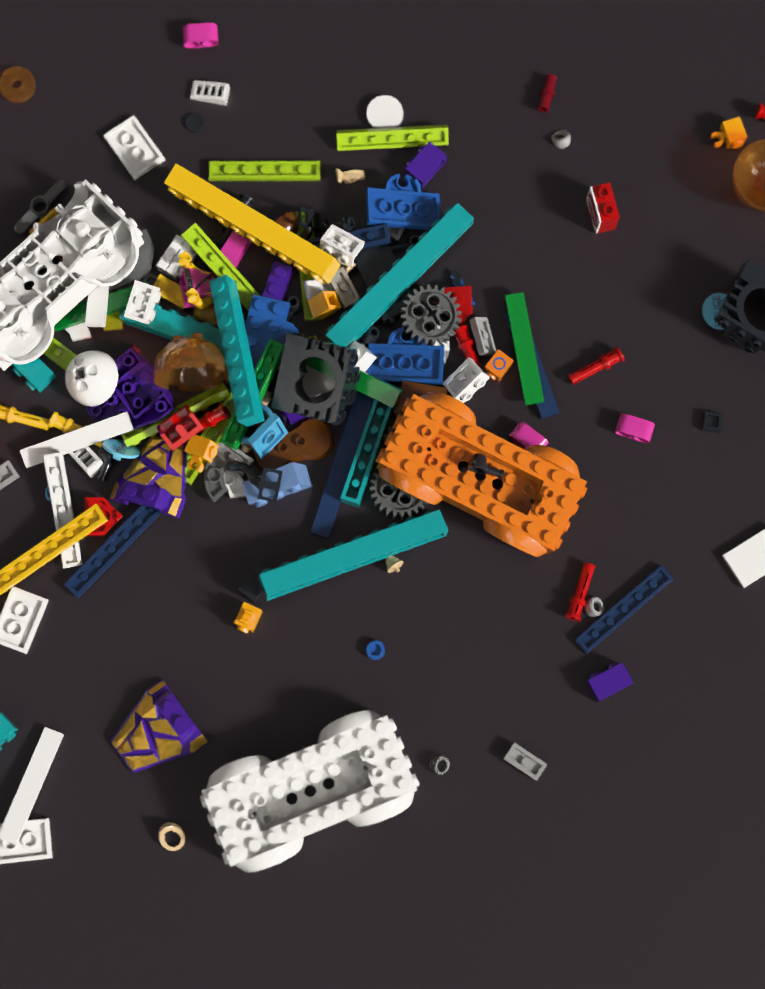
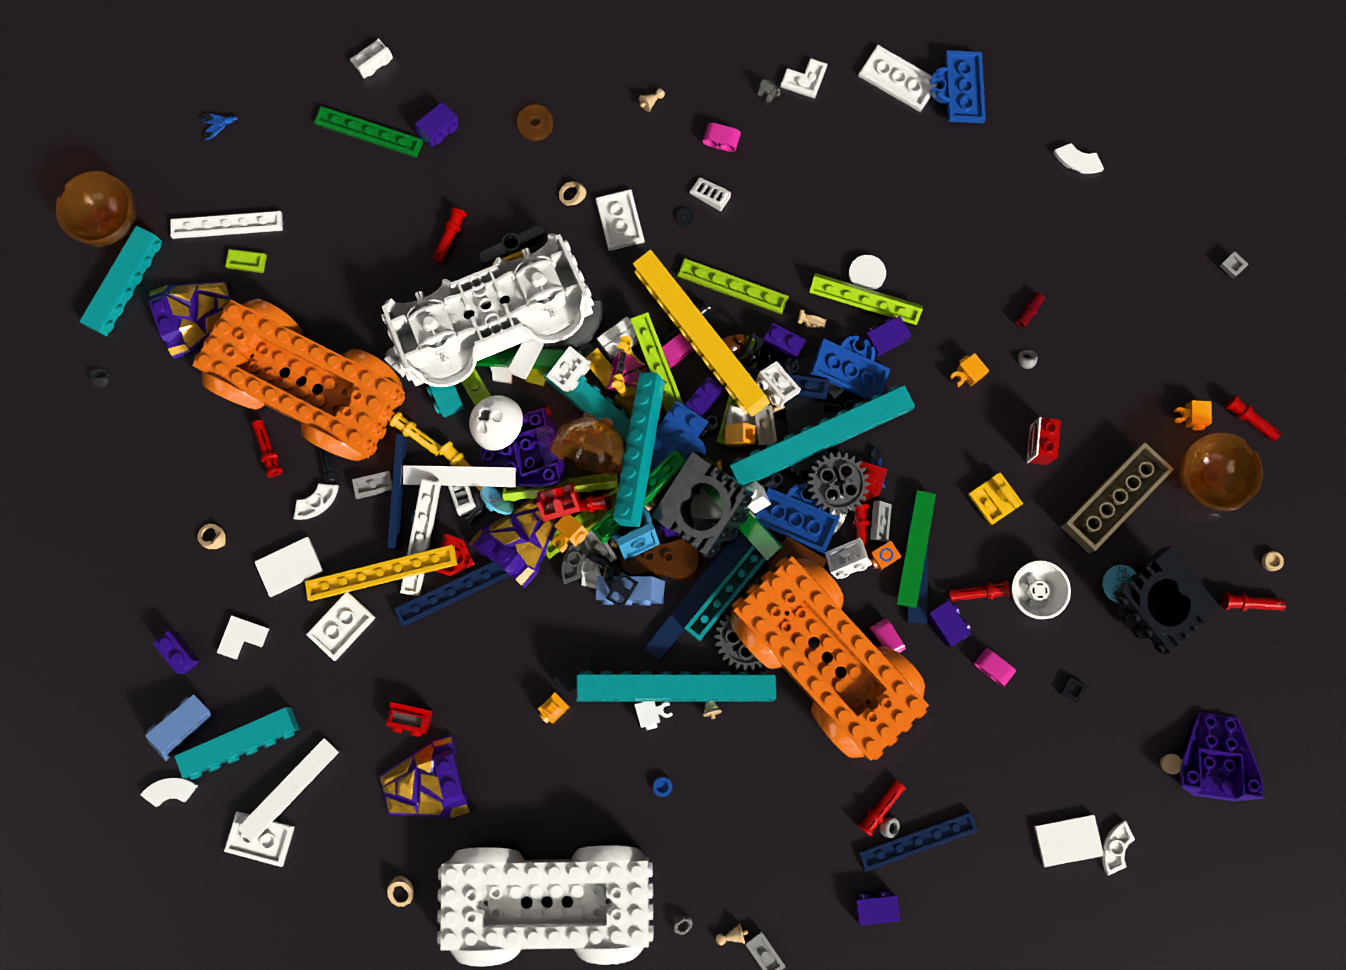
camera: 25 degrees right, 0 degrees up
(24, 477) = (397, 493): none -> dark blue tile
(86, 140) = (581, 193): none -> tan piece
(117, 26) = (648, 101): none -> tan piece
(117, 678) = (408, 718): none -> red window
(332, 204) = (784, 342): none -> dark purple brick
(338, 589) = (649, 714): none -> white brick
(479, 465) = (829, 647): black bar -> none
(491, 755) = (735, 935): none -> tan piece
(512, 168) = (970, 370): none -> light orange brick
(579, 277) = (995, 499): none -> yellow plate
(579, 404) = (949, 623): none -> dark purple brick
(654, 334) = (1048, 582): none -> white piece
(687, 235) = (1117, 498): none -> dark tan brick

